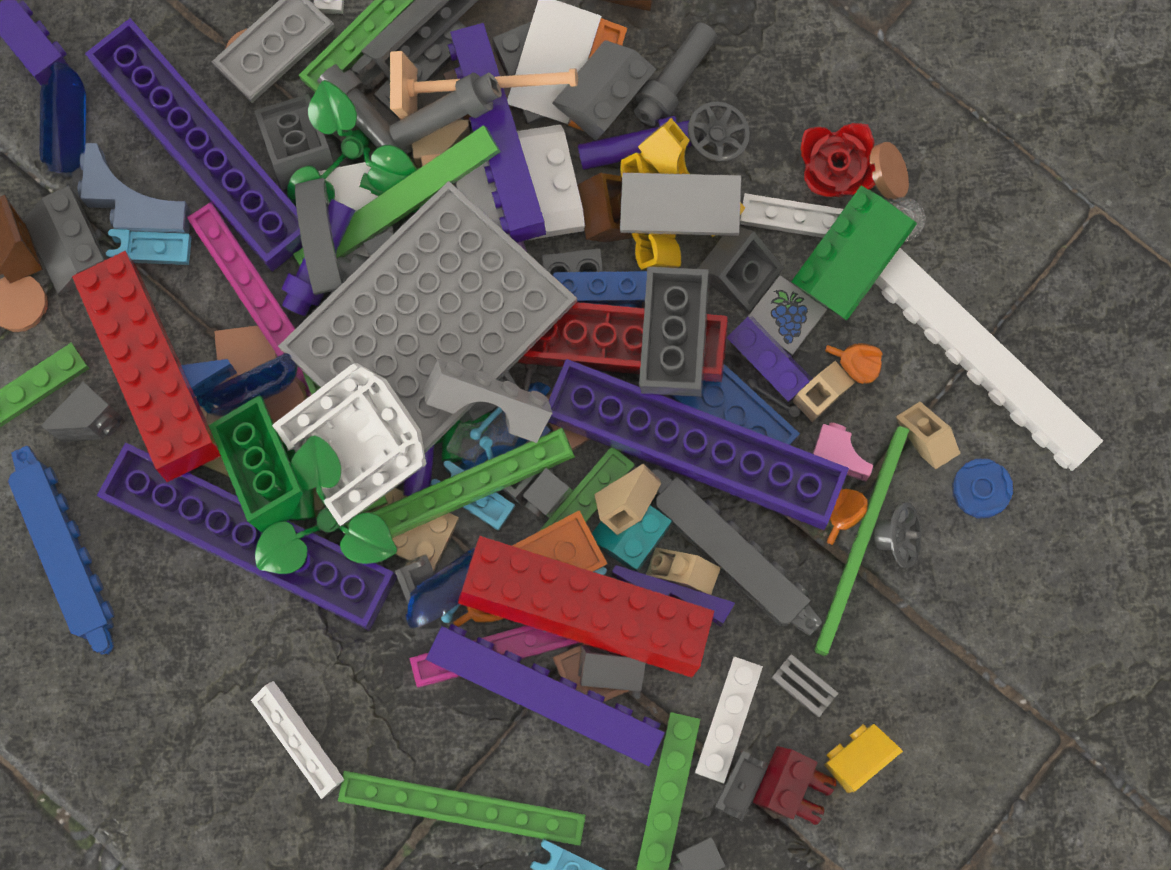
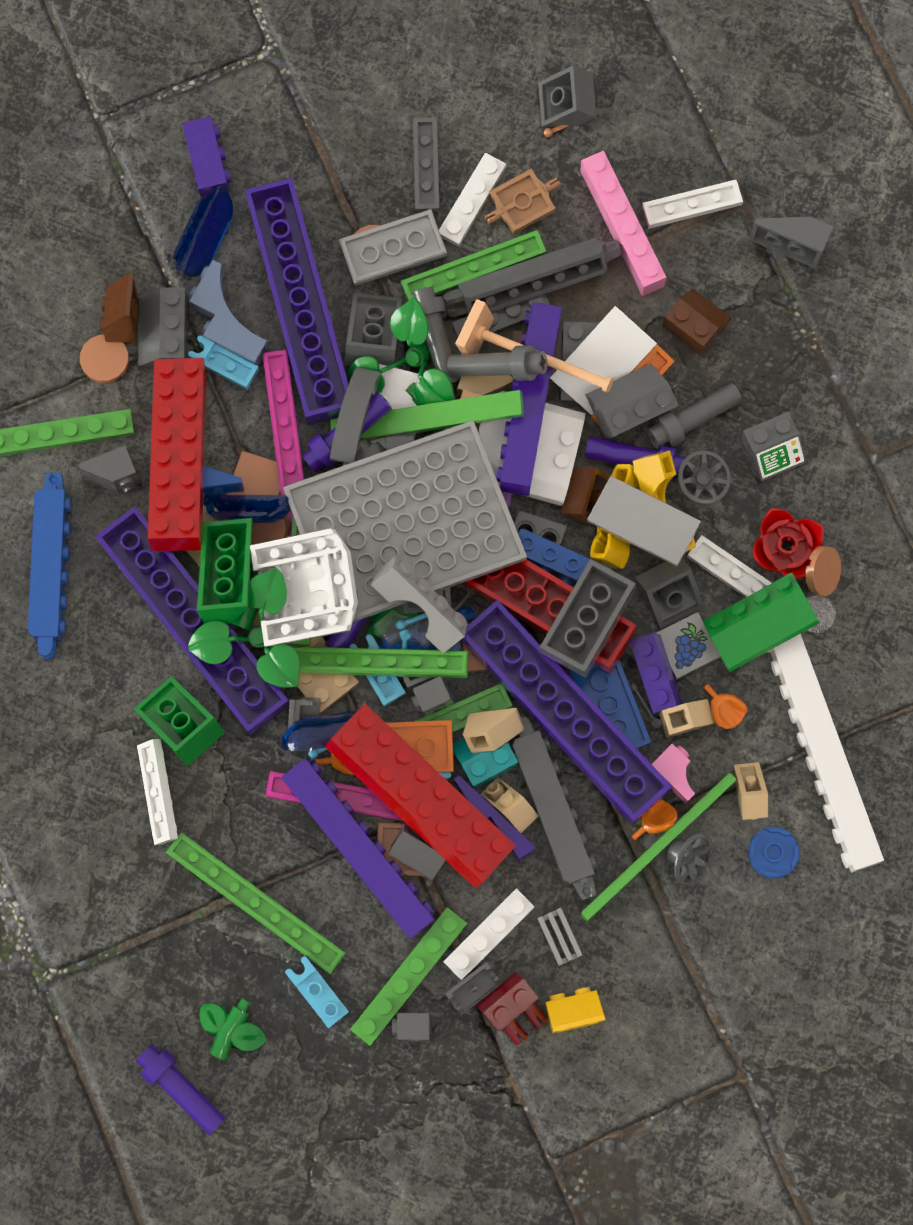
camera: 25 degrees right, 0 degrees up
(285, 651) = (179, 720): none -> green slope
(773, 68) = (774, 446): none -> dark grey slope

